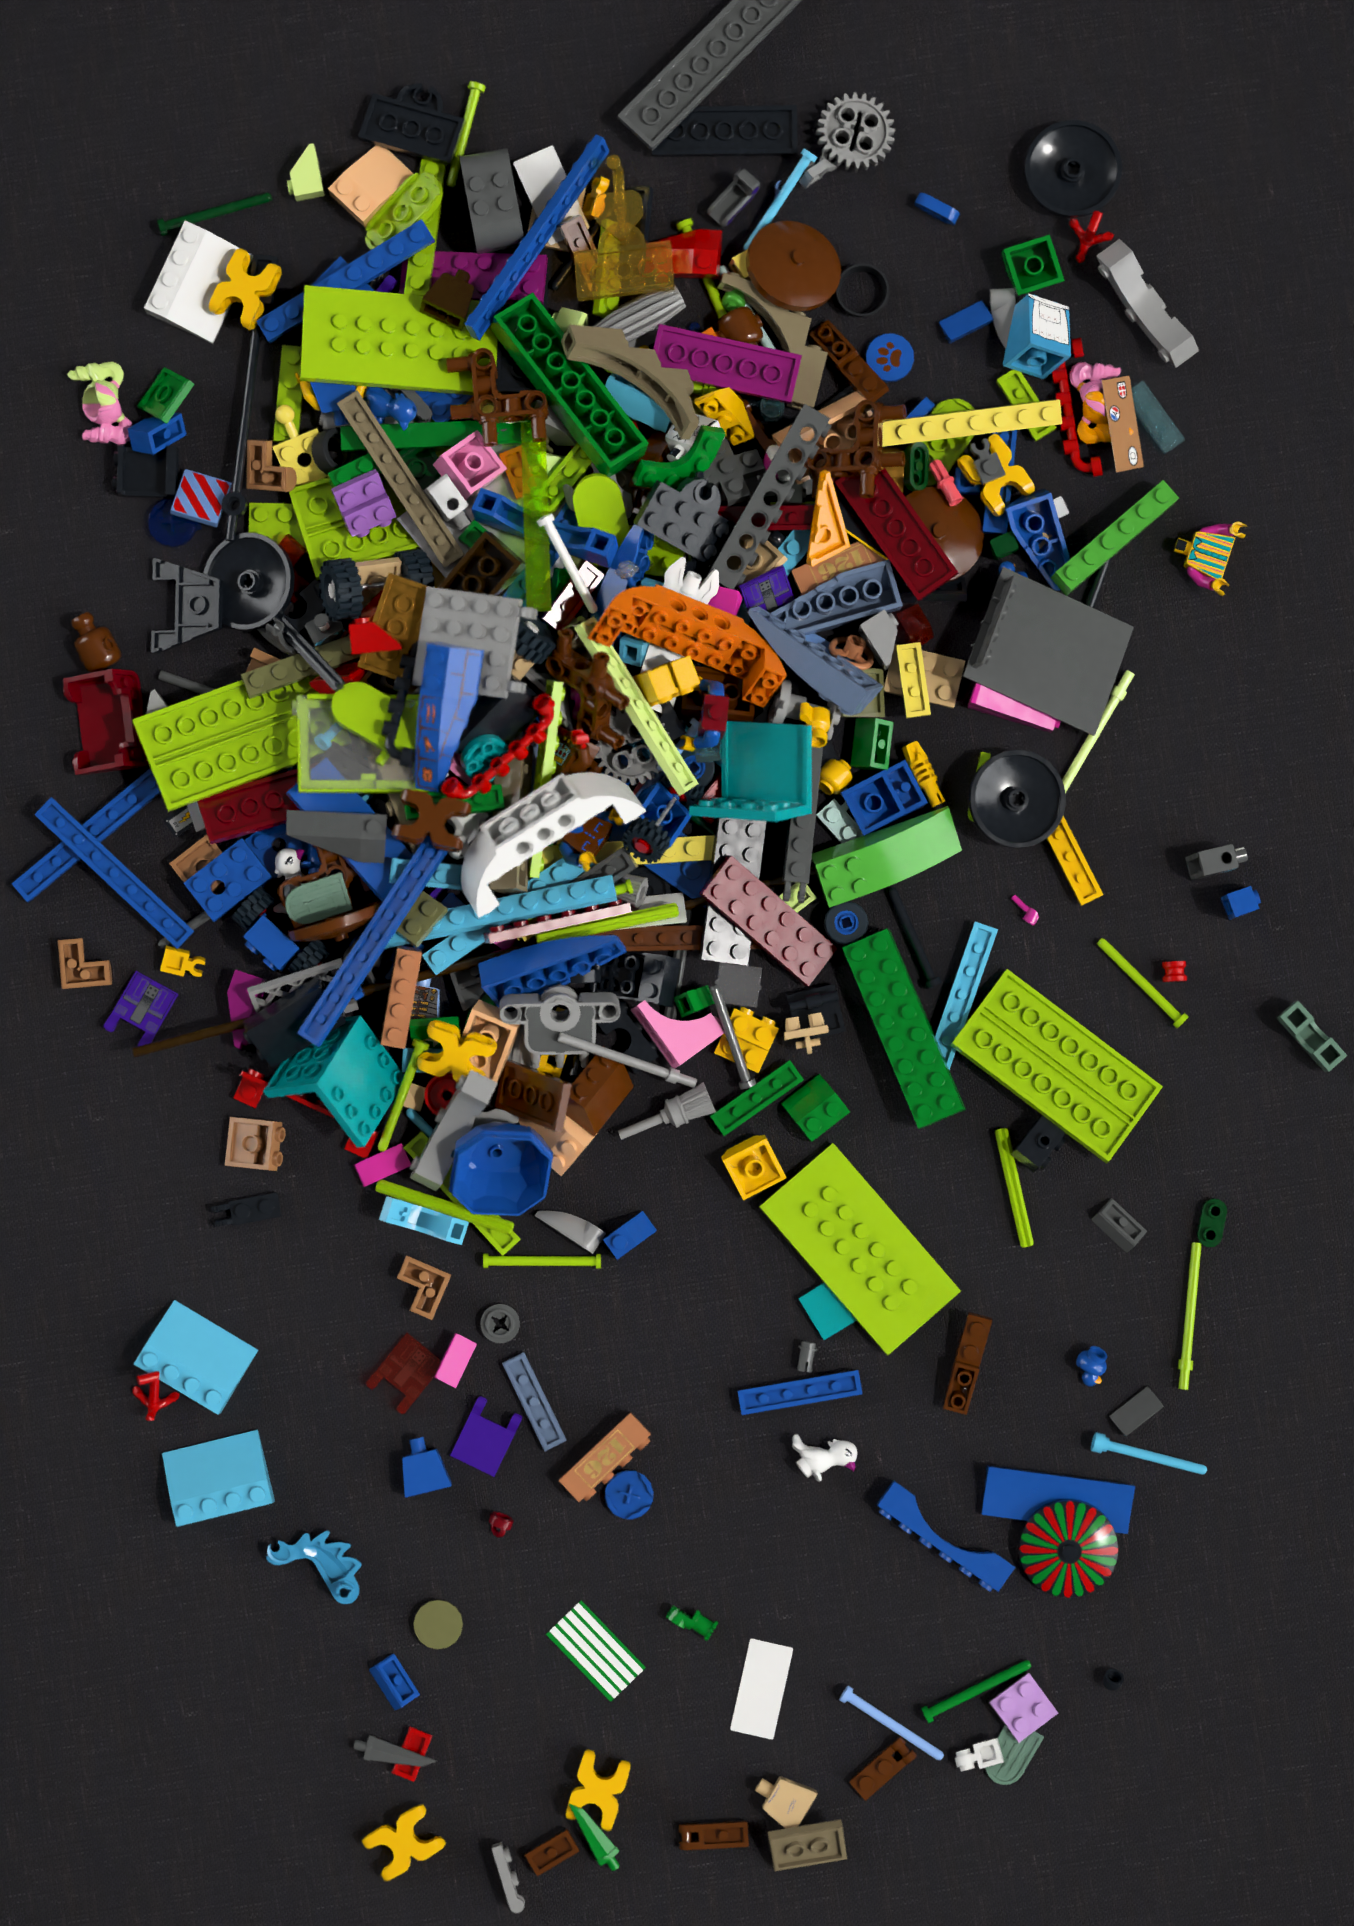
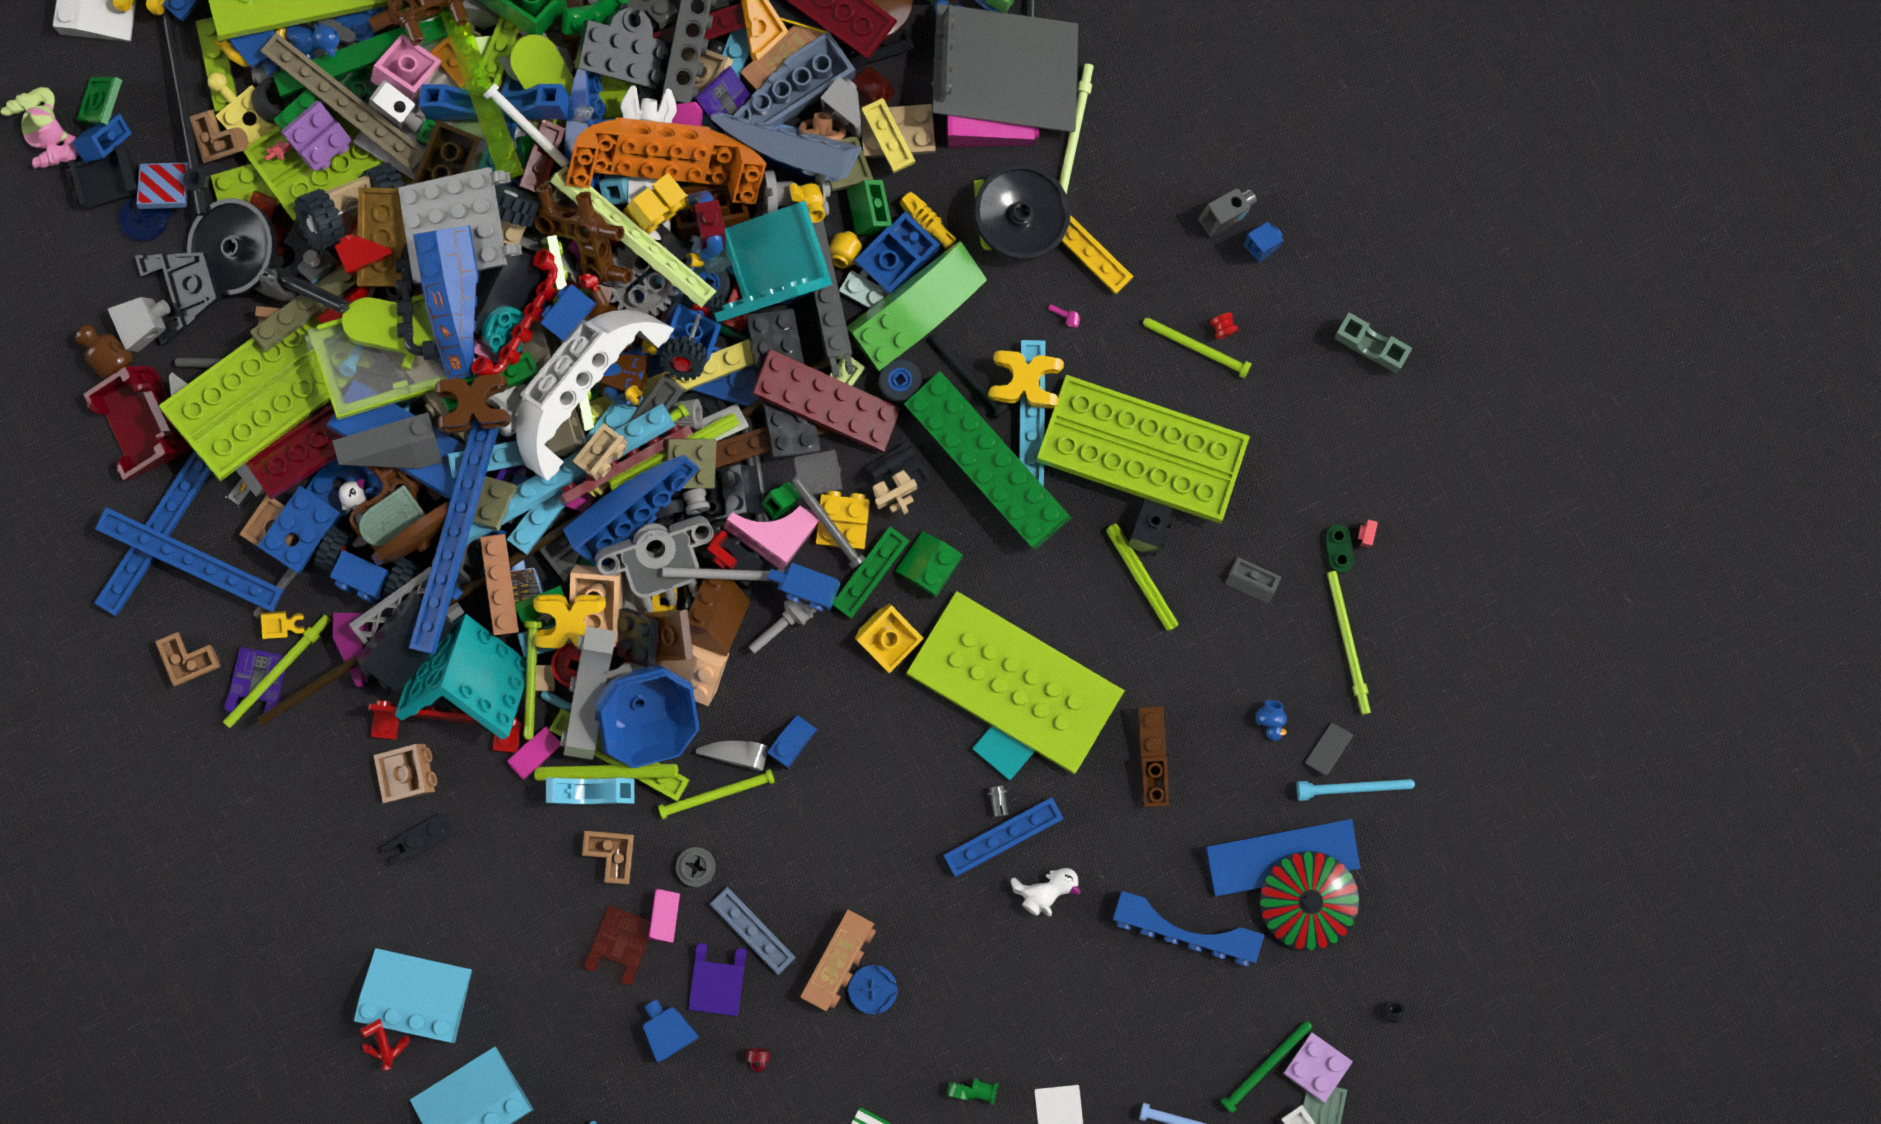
camera: 15 degrees left, 5 degrees down
(137, 625) = (139, 321): none -> light grey torso
(206, 982) = (310, 635): none -> lime bar
(322, 502) = (278, 150): none -> coral plant
(515, 1090) = (637, 637): none -> black plate
(538, 905) = (600, 452): none -> tan bracket
(549, 762) = (567, 312): none -> blue brick
(612, 976) = (695, 501): none -> light grey wheel
(620, 1040) = (722, 557): none -> red bracket
(632, 934) = (701, 452): none -> olive plate
(692, 1094) = (806, 585): none -> blue hinge
(966, 962) = (1025, 379): none -> yellow piece
(1243, 1218) = (1367, 533): none -> coral plate

